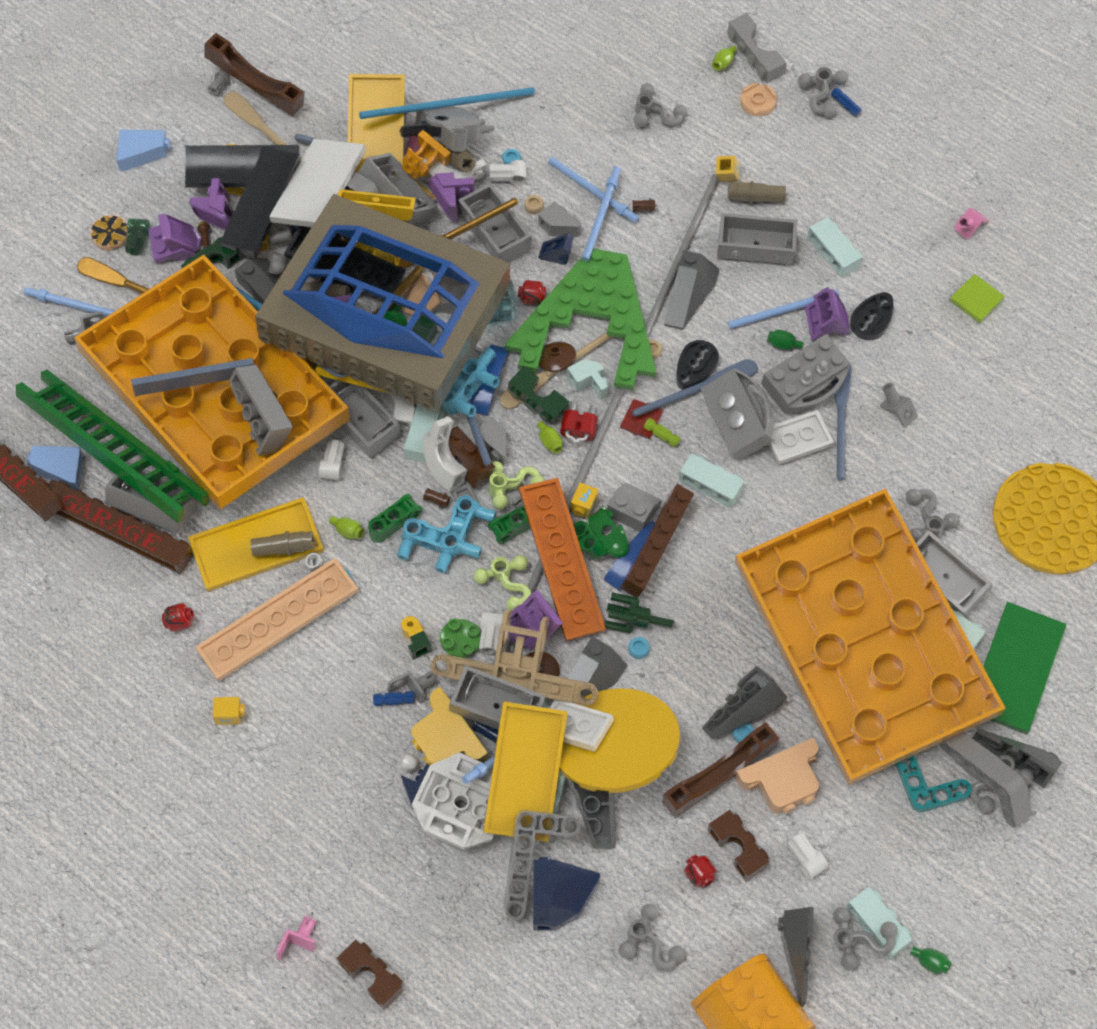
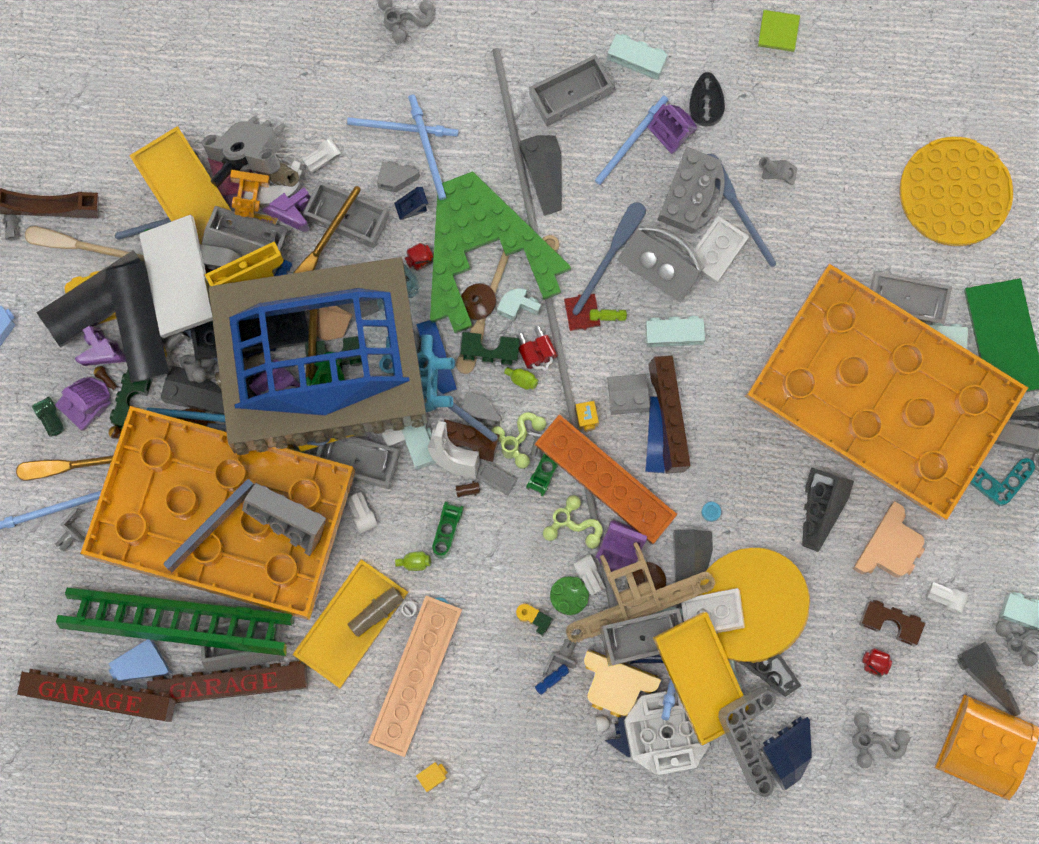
camera: 30 degrees left, 15 degrees up
(109, 232) = (22, 428): tile -> none
(177, 617) = (335, 727): red head -> none
(436, 538) = (493, 525): medium azure pin -> none
(446, 103) = (227, 127): dark azure piece -> none
(510, 155) = (313, 139): medium azure tile -> none
(534, 204) = (362, 172): tan tile -> none
(594, 542) = (636, 440): green piece -> none
(632, 615) = (690, 489): dark green plant -> none
(643, 205) = (455, 116): reddish brown pin -> none
(689, 357) = (604, 233): black piece -> none
(699, 786) = (841, 572): reddish brown arch -> none
(727, 168) = (503, 38): yellow brick -> none
(741, 732) = (838, 530): medium azure tile -> none
(756, 192) = (540, 45): dark tan piece -> none
(783, 340) = (650, 169): green plant -> none
(950, 521) = (881, 246): light grey piece -> none

